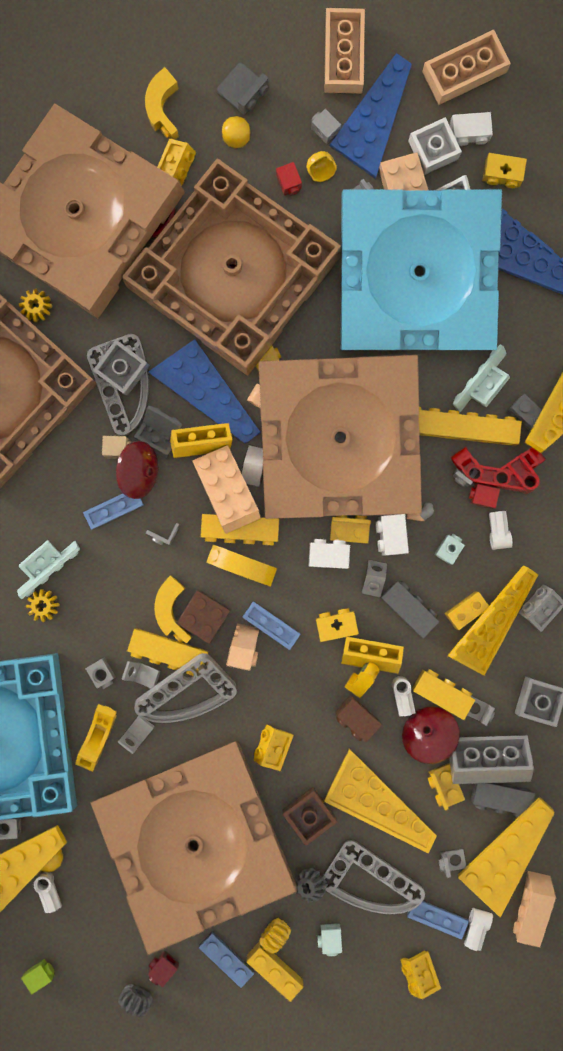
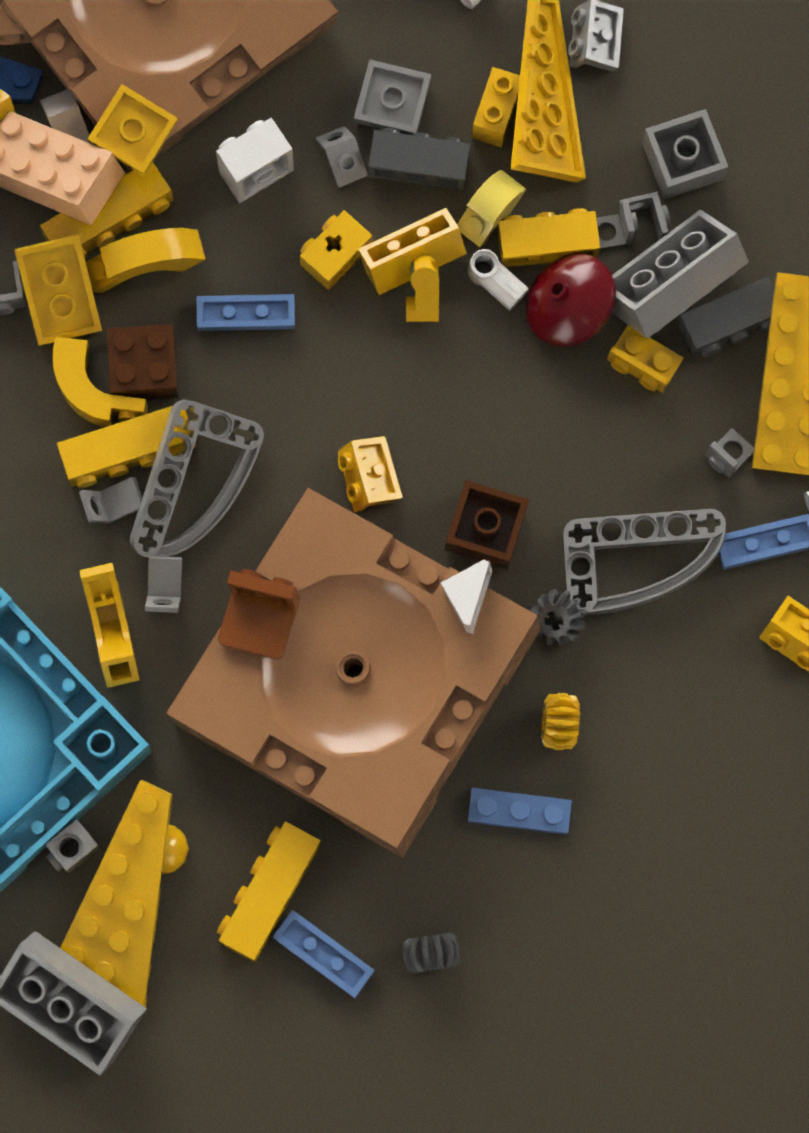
camera: 40 degrees left, 10 degrees down
(38, 976) = (269, 1023): lime brick -> none
(47, 893) = (200, 898): white piece -> none
(82, 914) = (269, 891): none -> yellow brick
(87, 961) = (323, 954): none -> medium blue plate
(93, 669) = (46, 528): light grey brick -> none
(162, 969) = (437, 886): dark red brick -> none
(165, 791) = (259, 614): none -> dark orange bracket
(188, 552) = (58, 289): none -> yellow plate
(242, 648) = (231, 365): light nougat wedge -> none
(269, 858) = (467, 592): none -> white slope
(275, 971) = (597, 772): yellow brick -> none
(277, 503) = (133, 129): none -> yellow plate
(330, 939) = (642, 675): light aqua brick -> none
(350, 529) = (261, 103): yellow bracket -> none
(358, 718) = (455, 346): reddish brown brick -> none
(368, 798) = (555, 449): yellow wing -> none
(392, 534) = (322, 75): white brick -> none
(419, 568) = (392, 97): none -> light grey plate
(427, 511) = (343, 29): light grey arm -> none
(427, 659) = (490, 205): none -> light yellow brick
(449, 549) = (414, 45): light aqua brick -> none
(506, 720) = (659, 213): none -> light grey bracket

